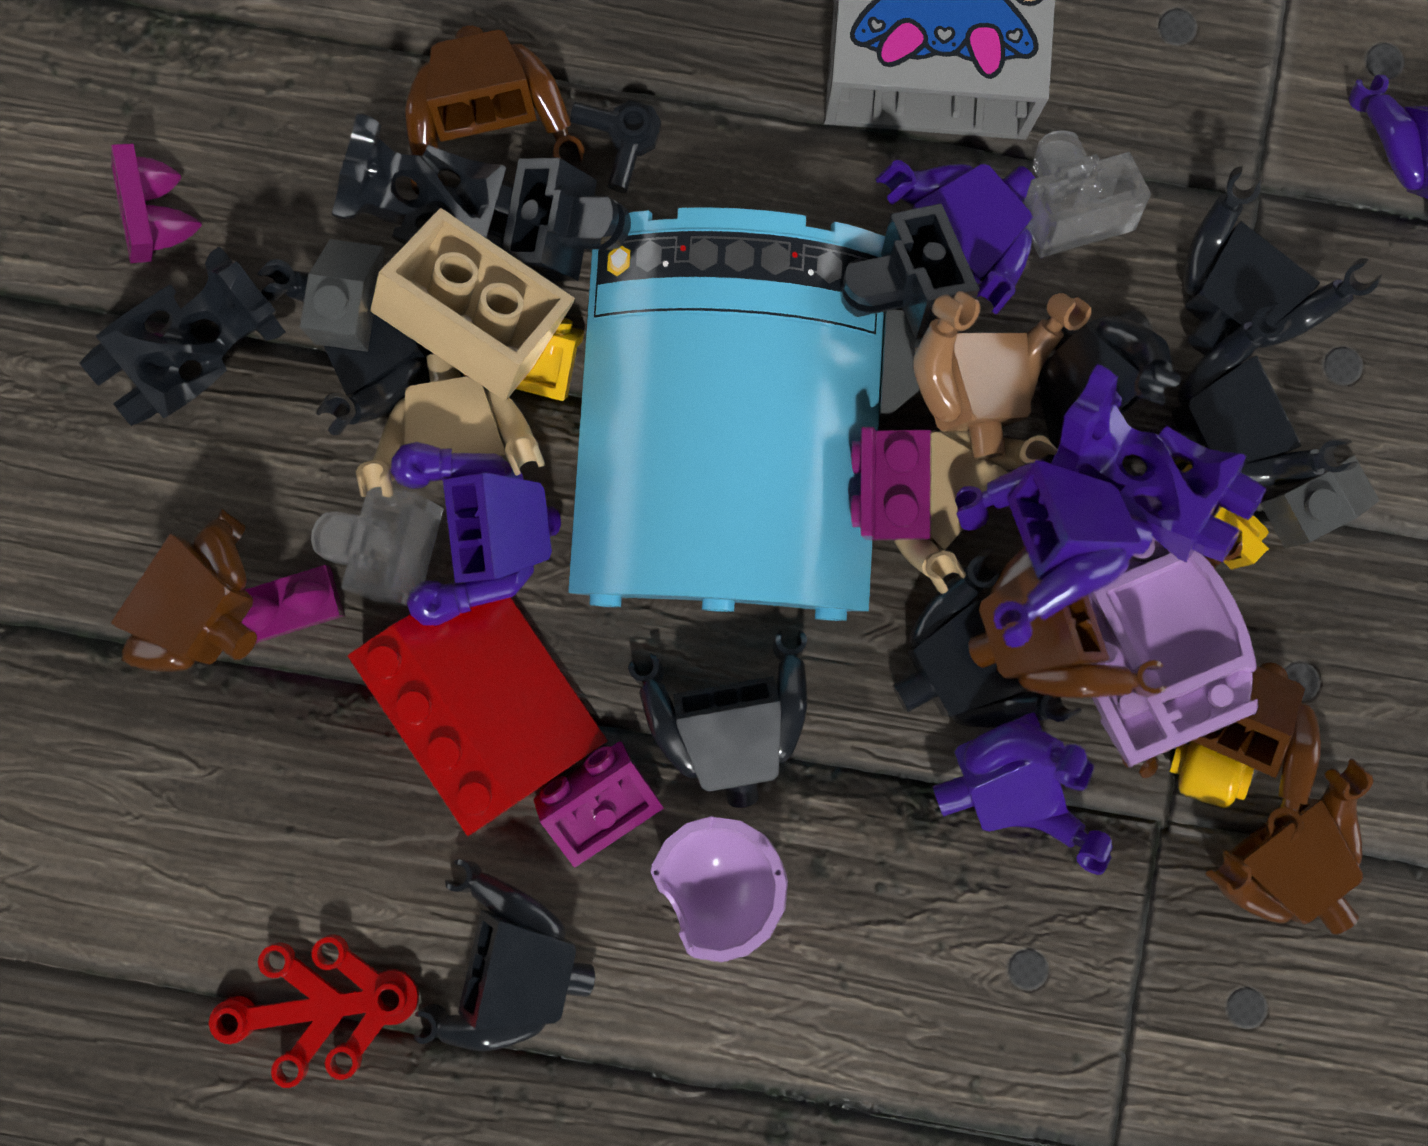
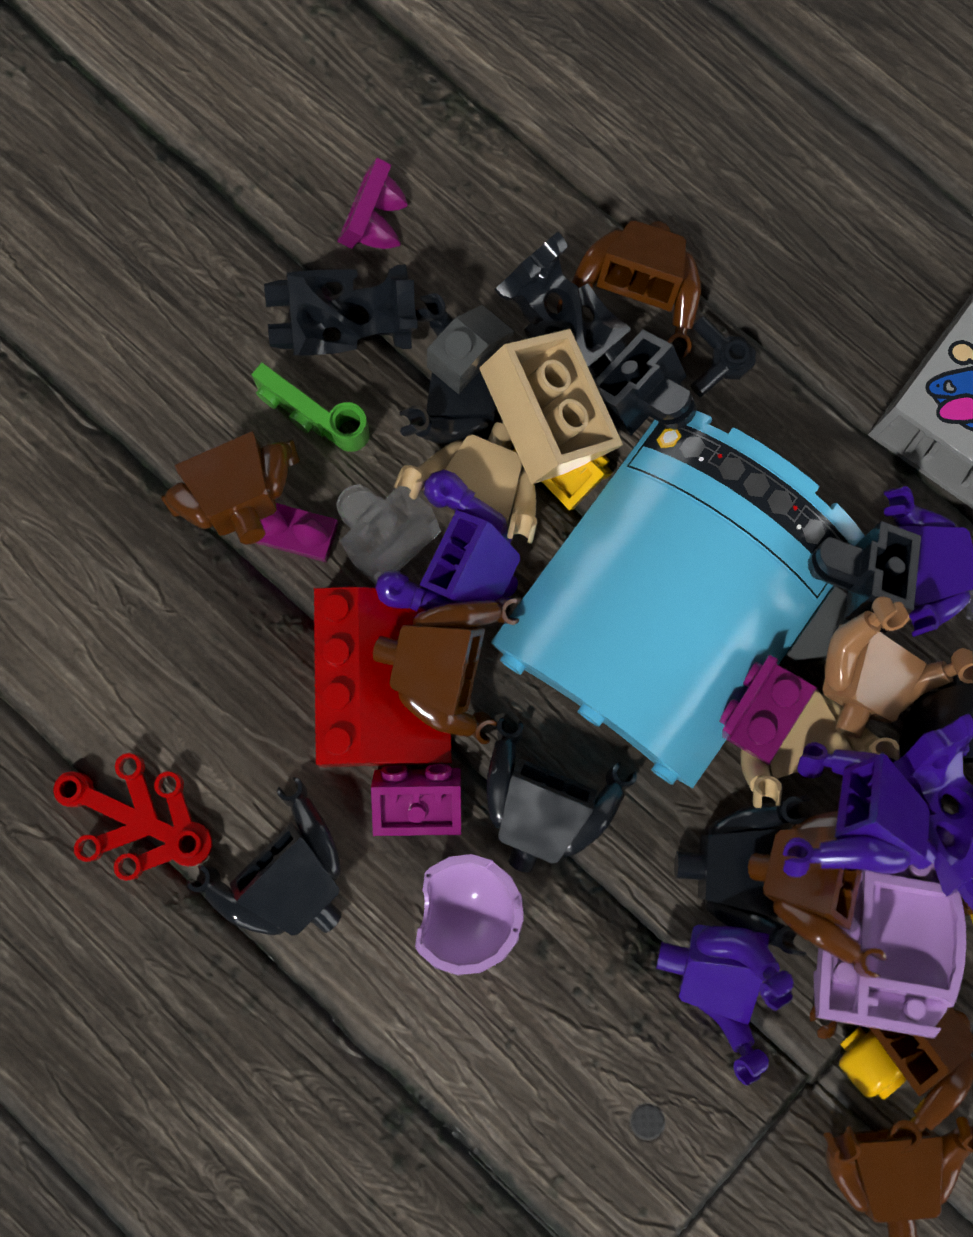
camera: 30 degrees right, 5 degrees down
(222, 472) = (308, 414): none -> bright green plate
(526, 650) = (439, 662): none -> reddish brown torso

